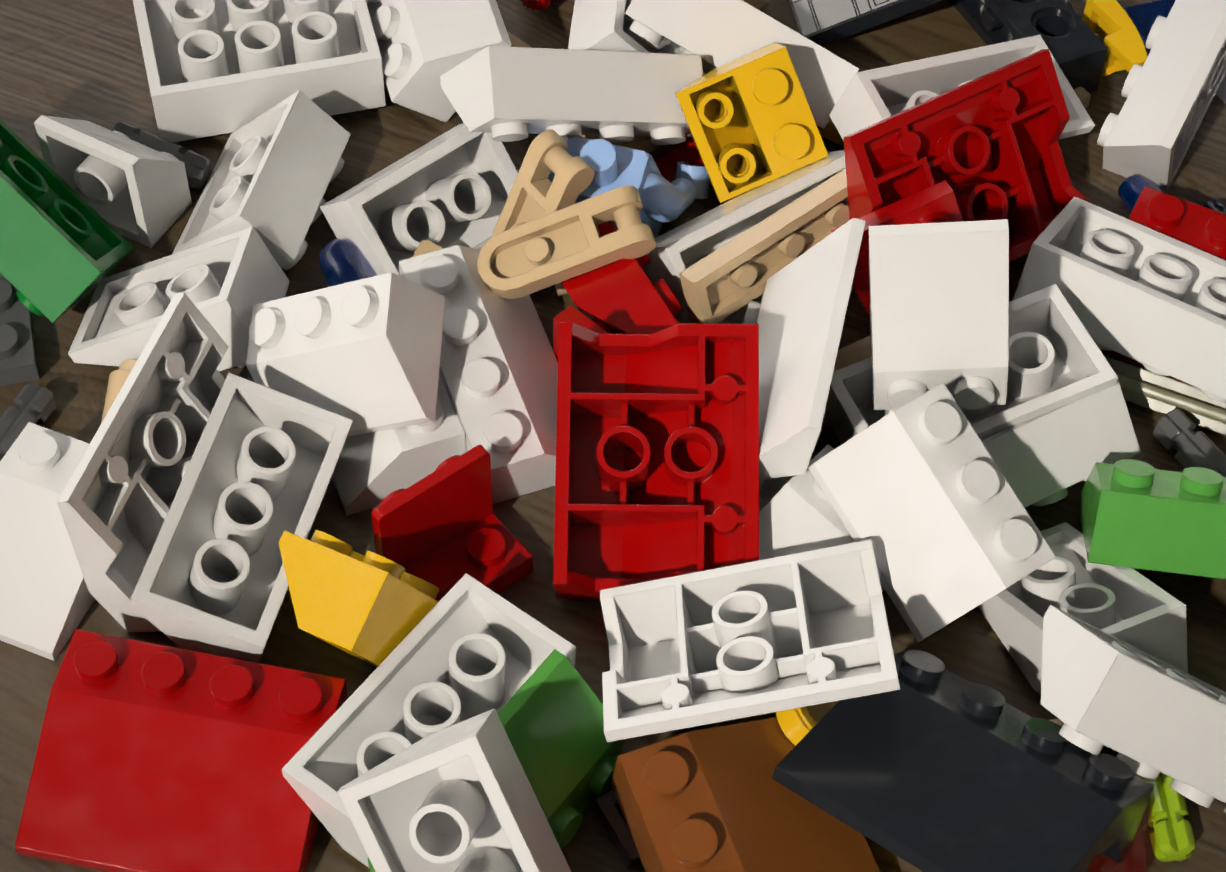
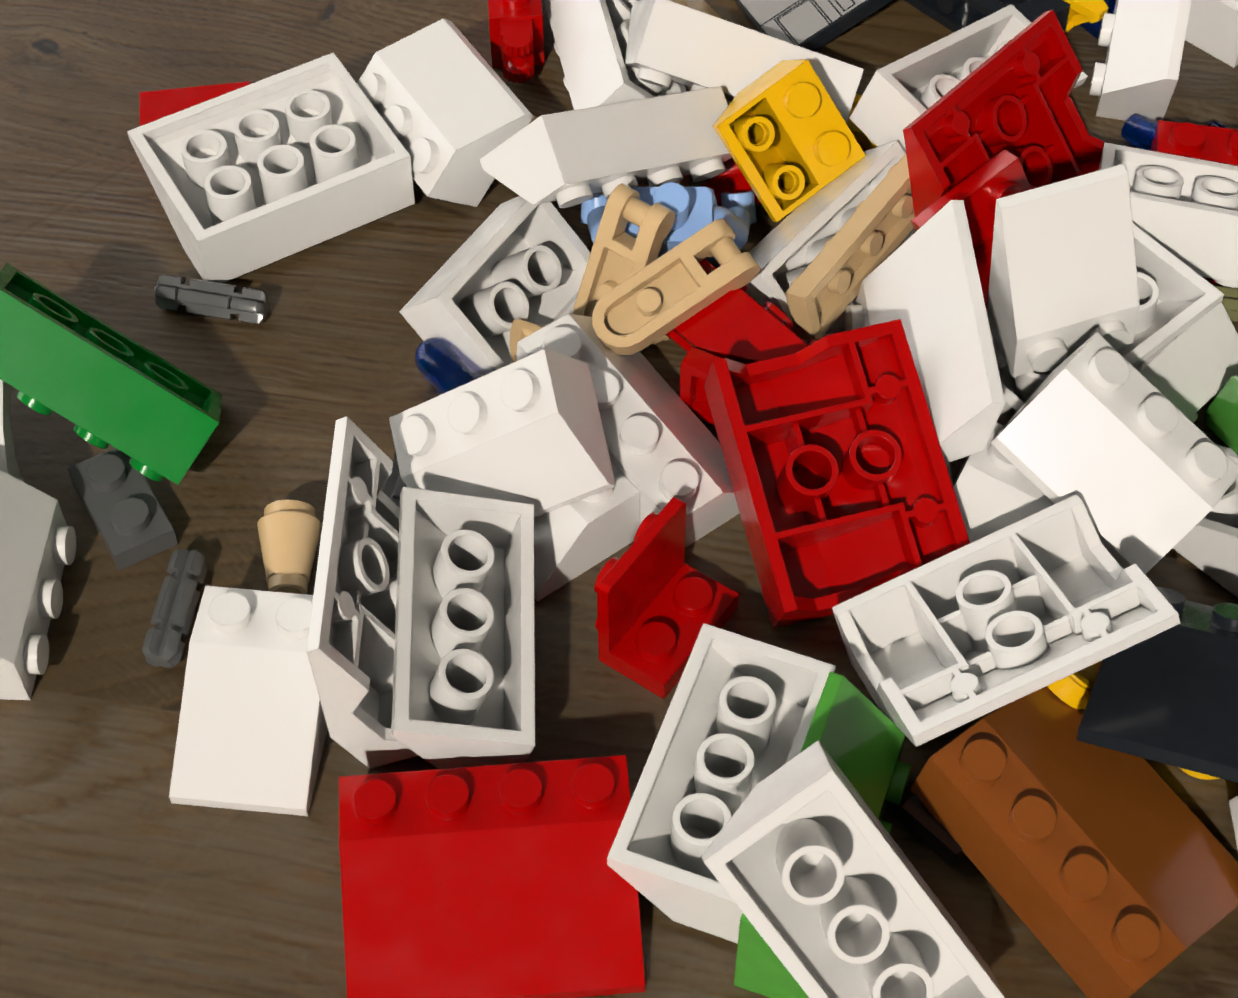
camera: 15 degrees left, 0 degrees up
(121, 179) = (190, 328): white slope -> none
(217, 276) = (286, 438): white slope -> none
(271, 179) = (334, 310): white slope -> none
(355, 599) = (607, 680): yellow slope -> none

